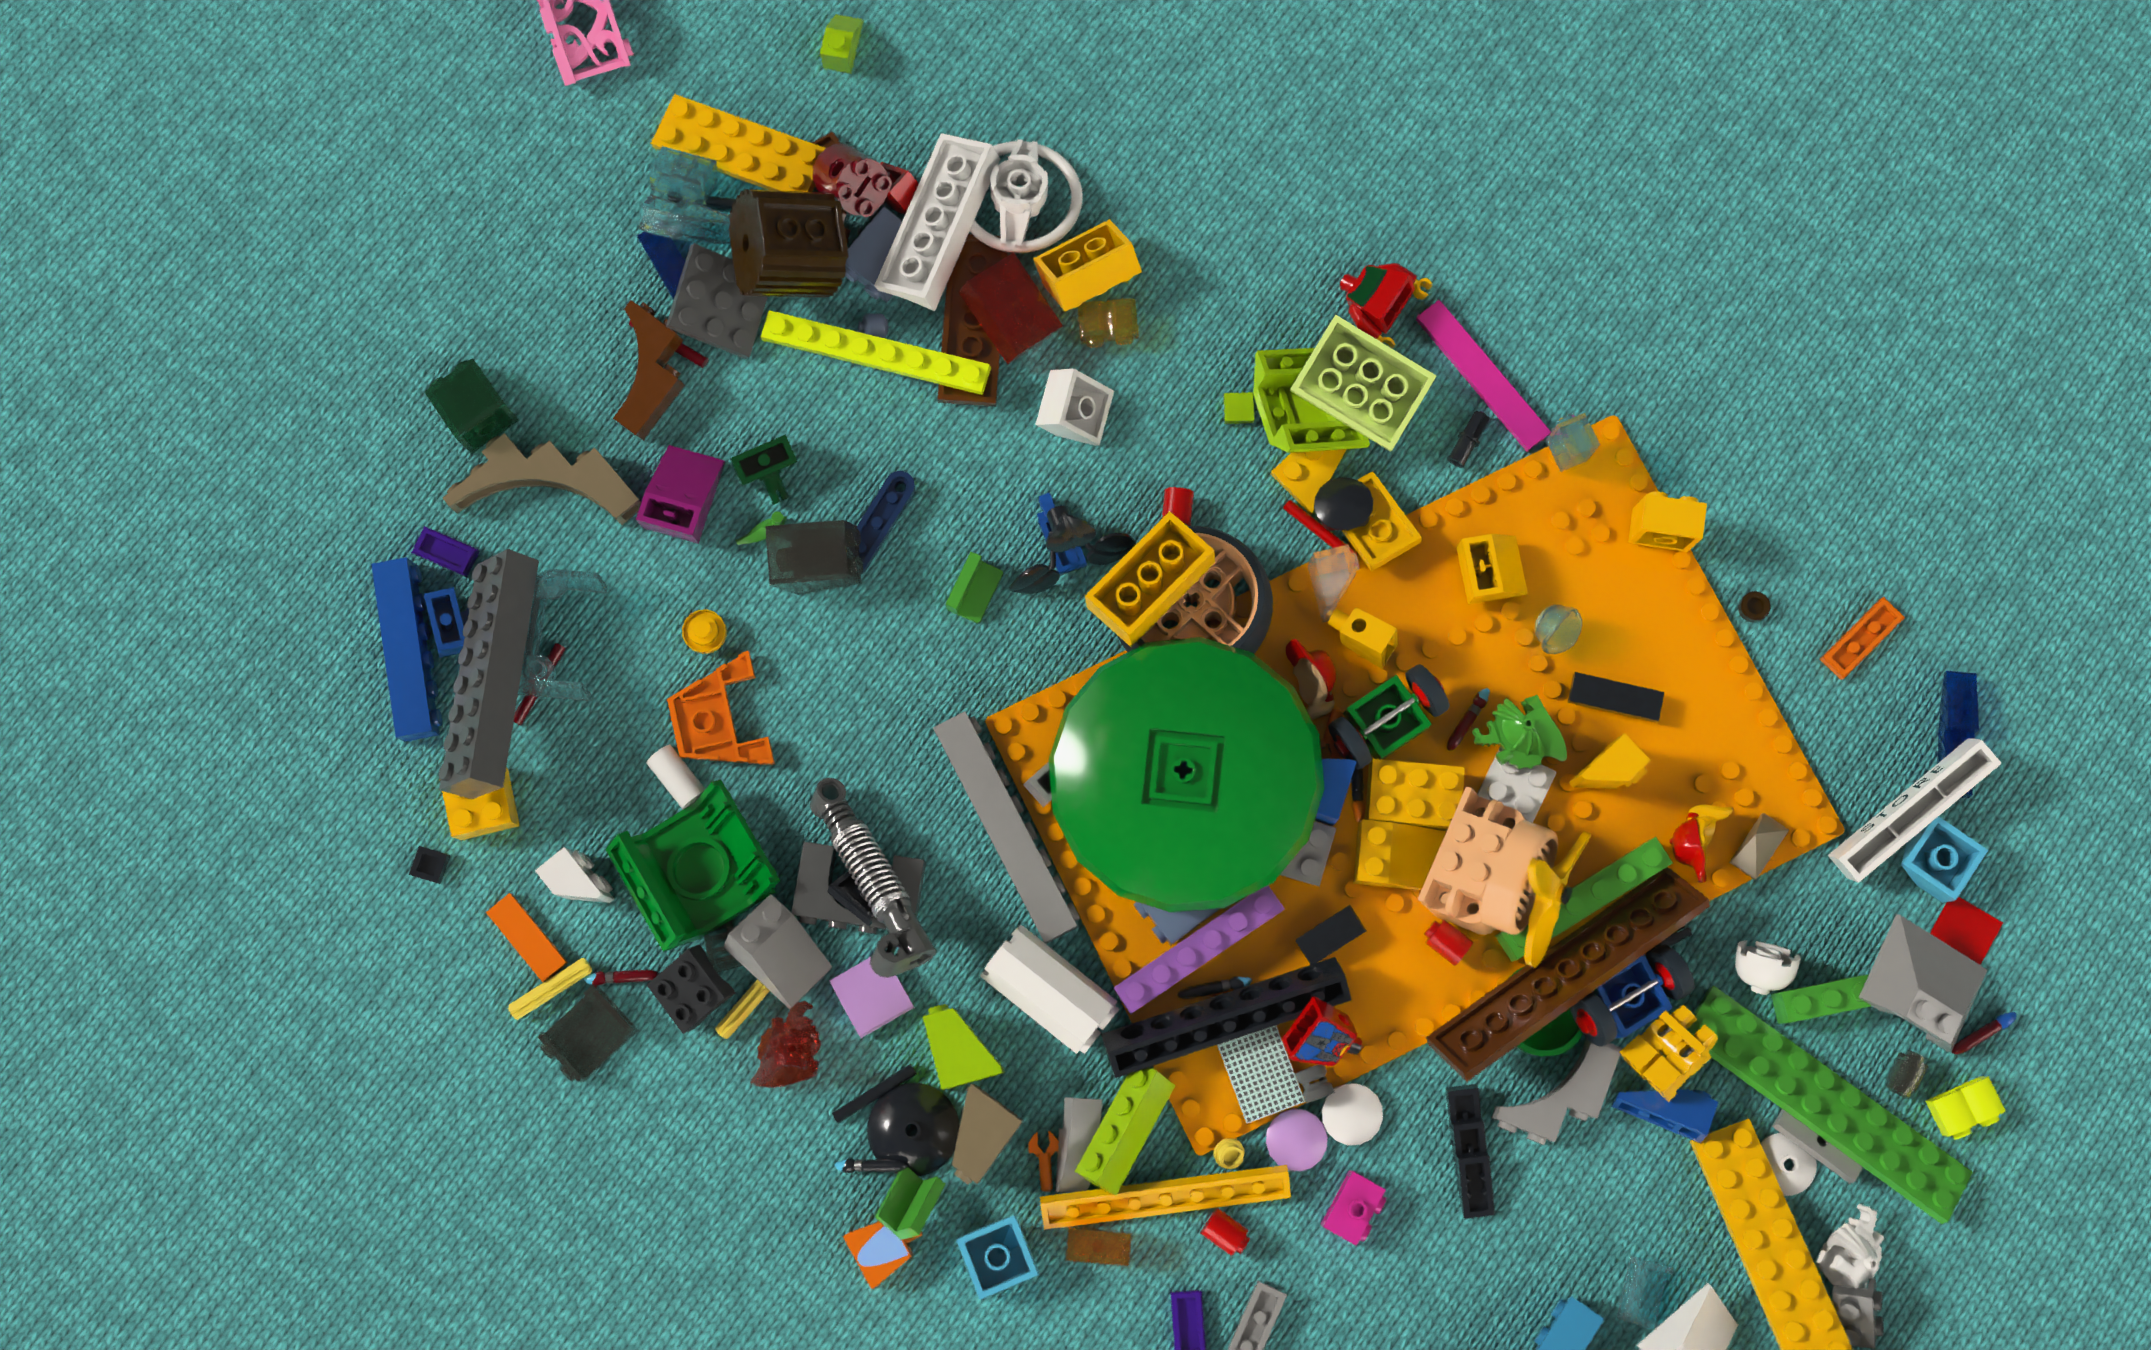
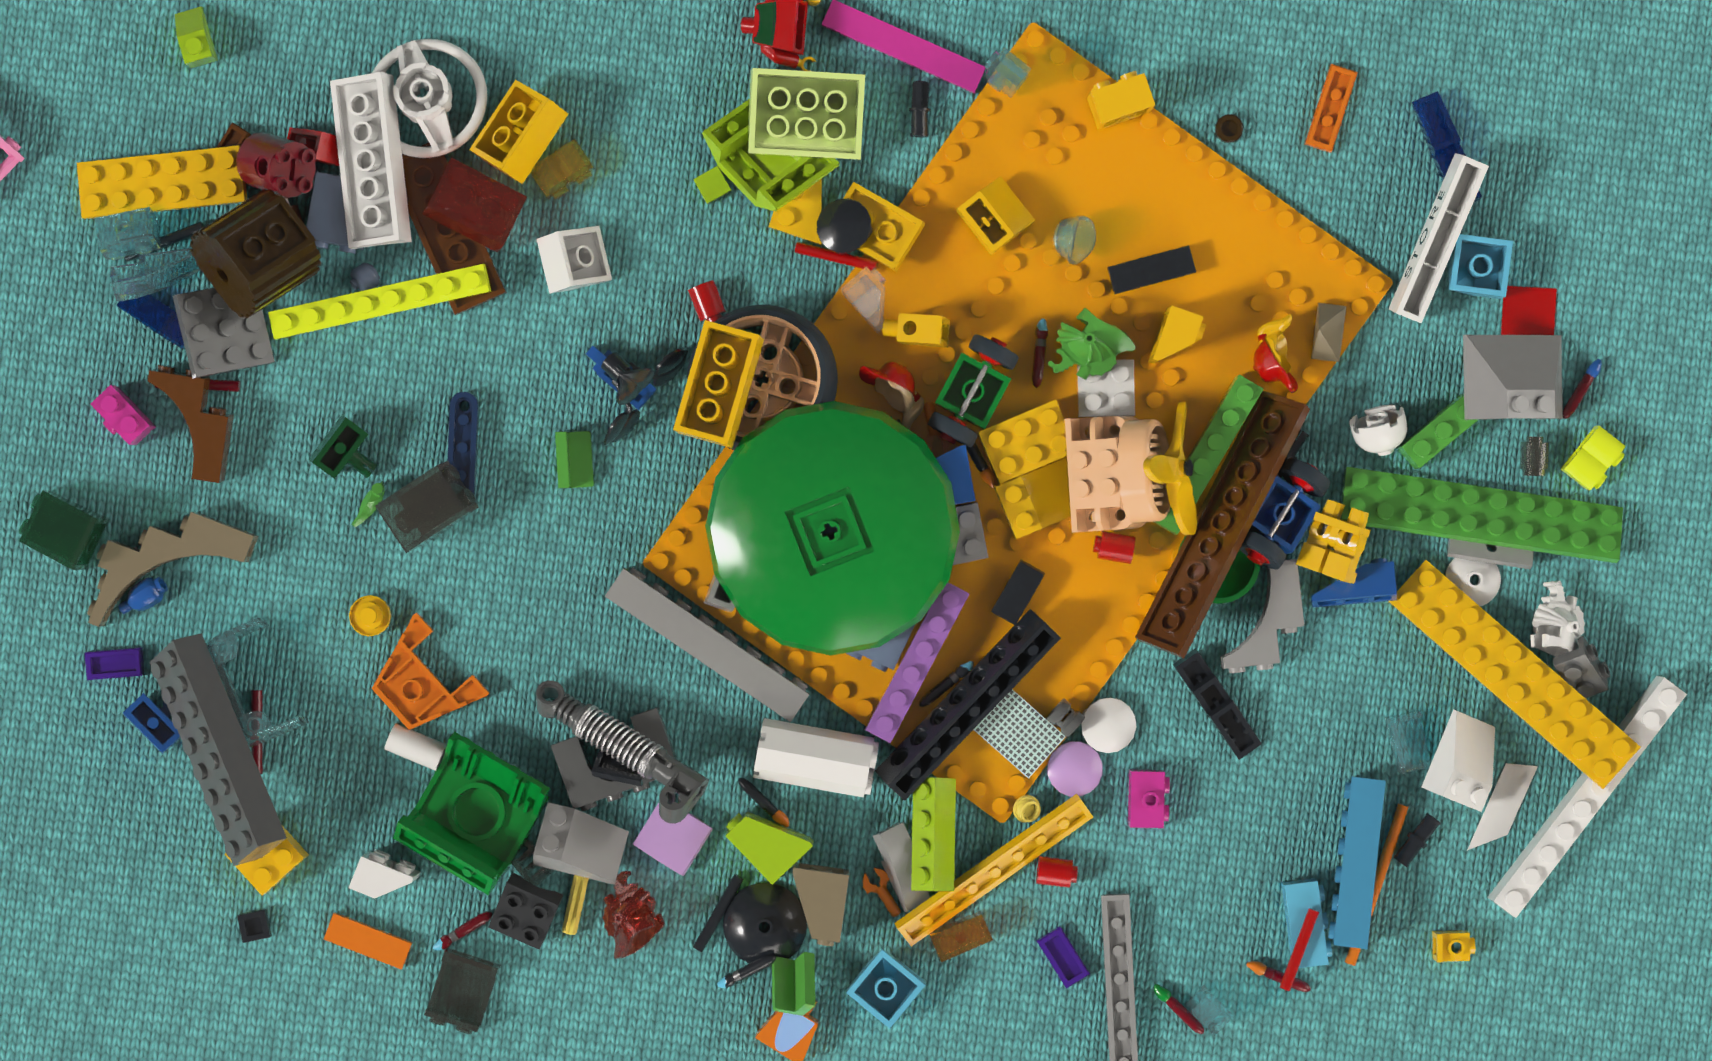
camera: 35 degrees left, 10 degrees up
(406, 649) = (131, 762): blue brick -> none
(509, 503) = (144, 595): none -> blue plant
(550, 988) = (410, 971): light yellow axle -> none
(584, 331) = (122, 415): none -> dark pink brick
(680, 494) = (284, 509): magenta slope -> none
(976, 1008) = (777, 815): none -> black piece
(1321, 1035) = (1051, 678): torso -> none

